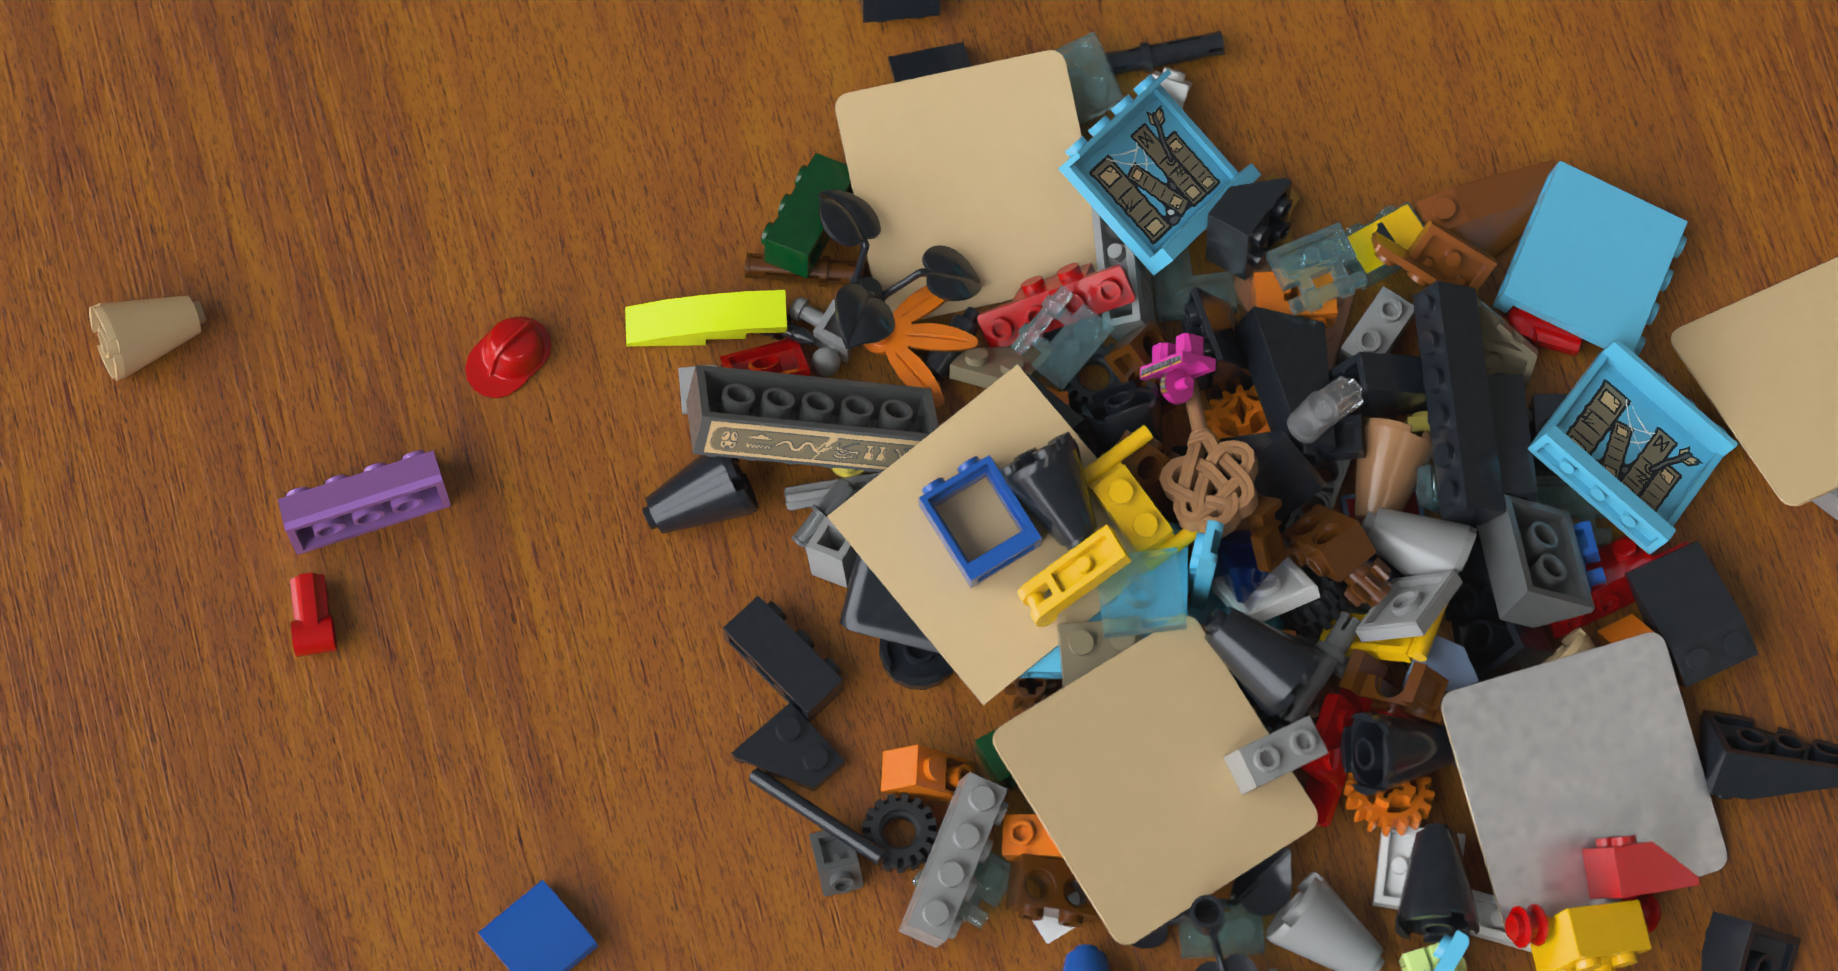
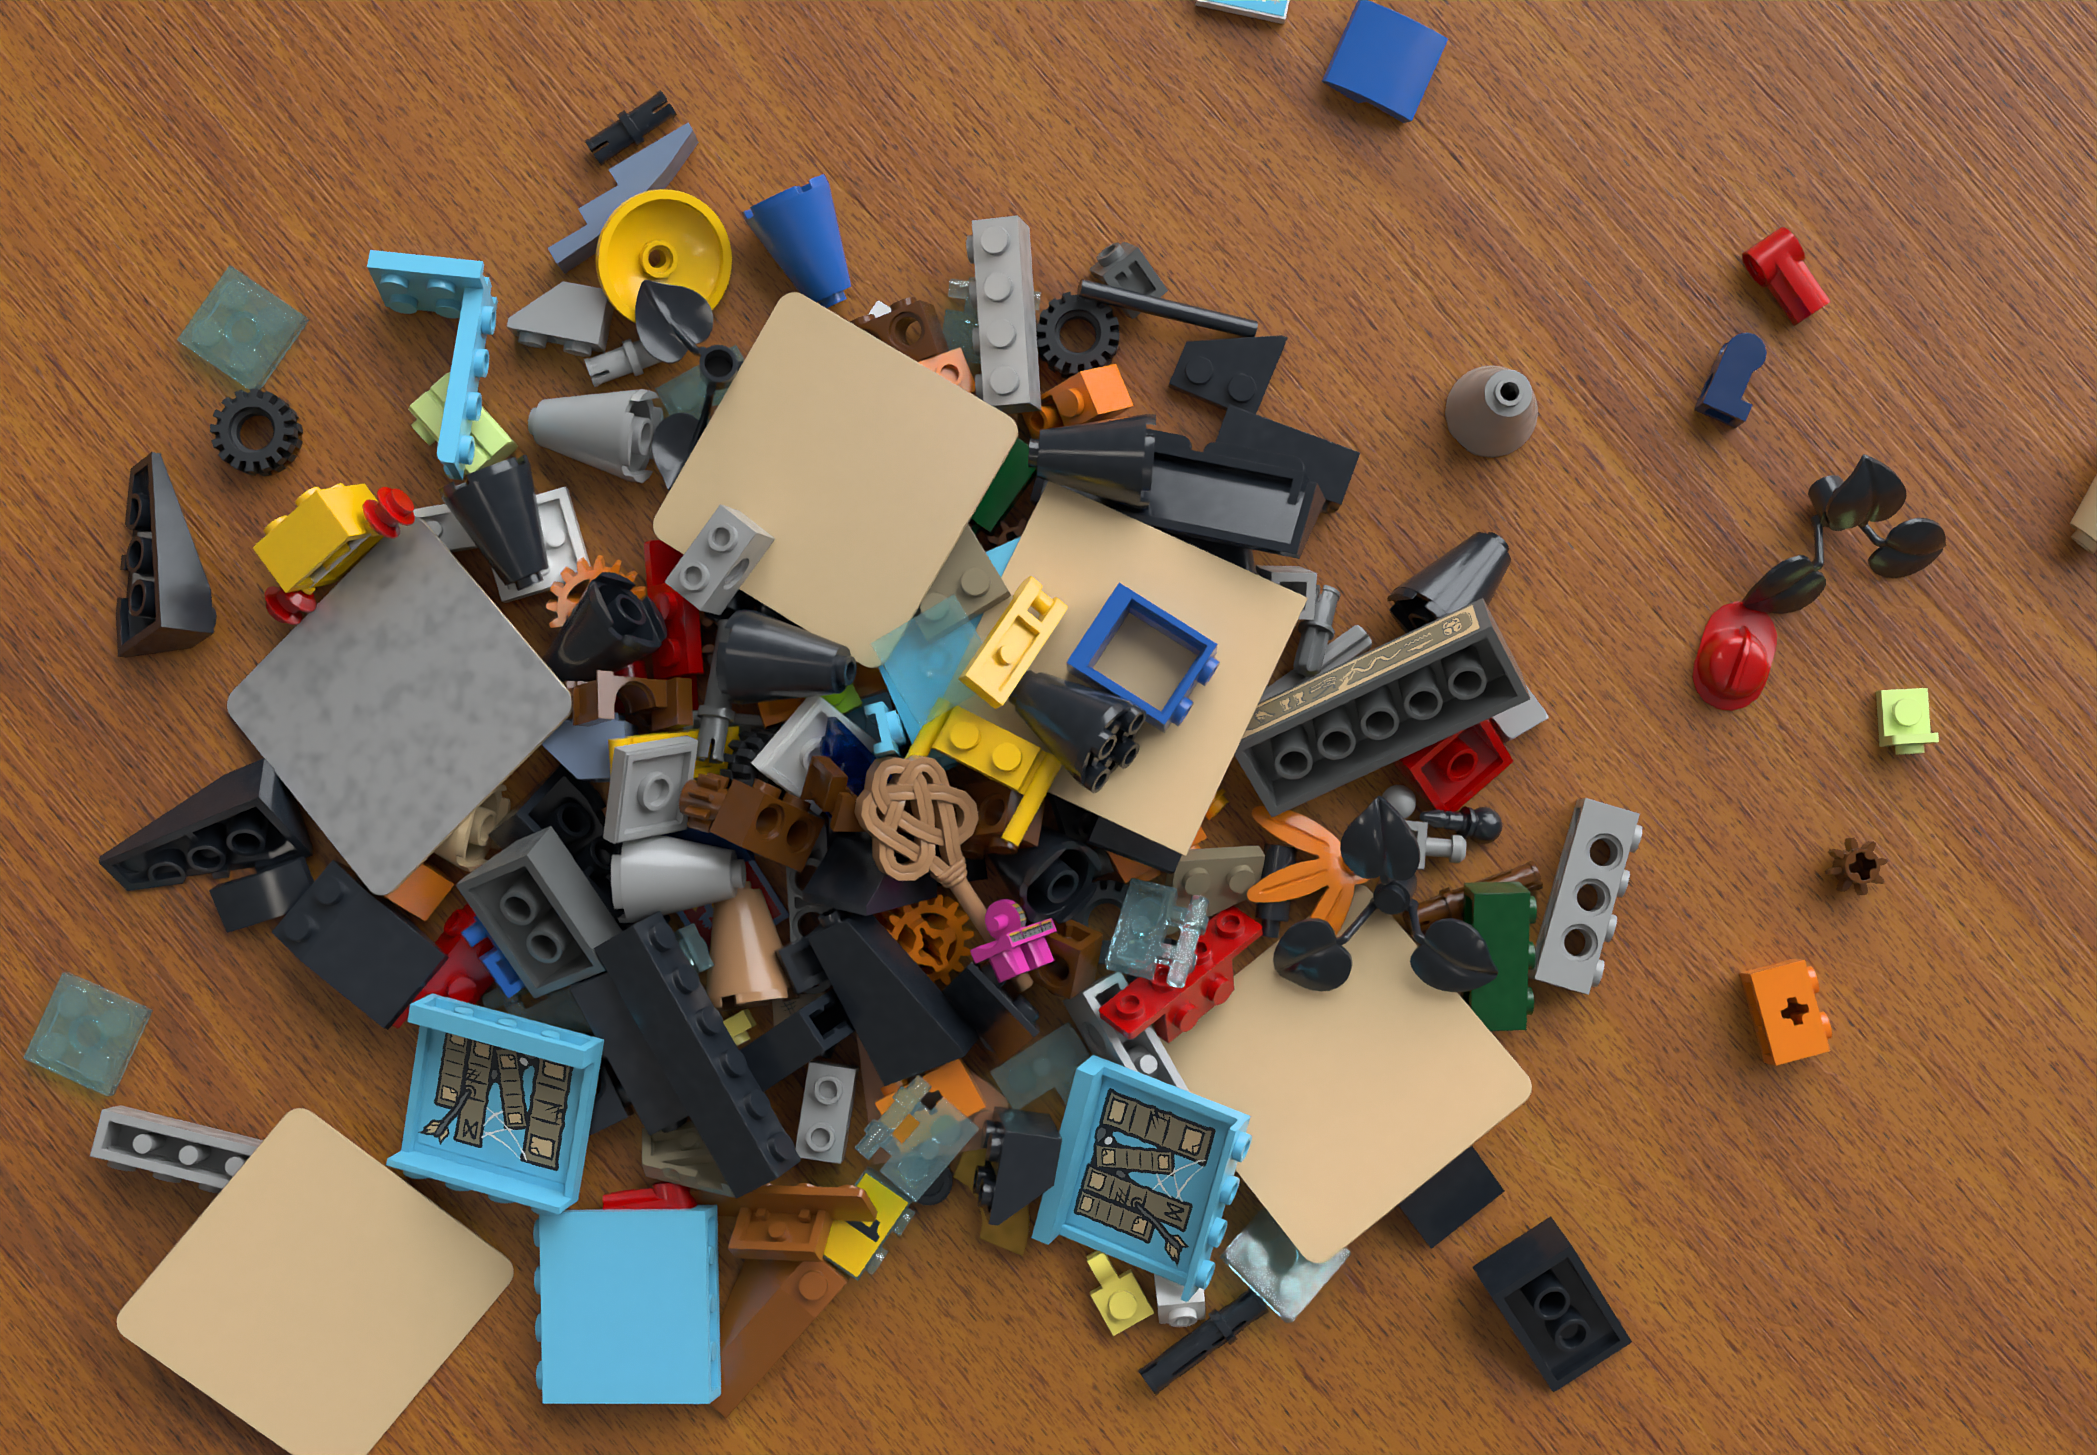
camera: 155 degrees right, 15 degrees up
(361, 392) = (1867, 495): none -> black plant
(363, 501) = (1802, 417): medium lavender slope -> none
(400, 559) = (1729, 379): none -> dark blue leg
(407, 248) = (1904, 720): none -> yellowish green bracket
(510, 168) = (1870, 869): none -> reddish brown gear
(597, 623) = (1491, 411): none -> light grey cone
(622, 66) = (1769, 992): none -> orange brick
(705, 318) = (1548, 789): neon yellow slope -> none
(718, 251) = (1622, 834): none -> light grey brick
(862, 640) = (1225, 496): none -> black slope
(934, 697) = (1099, 458): none -> black cone
(1214, 113) = (1118, 1297): none -> light yellow plate
(1324, 409) = (833, 967): clear piece -> none
(1632, 868) = (304, 621): red slope -> none
(1749, 692) = (262, 894): none -> black slope

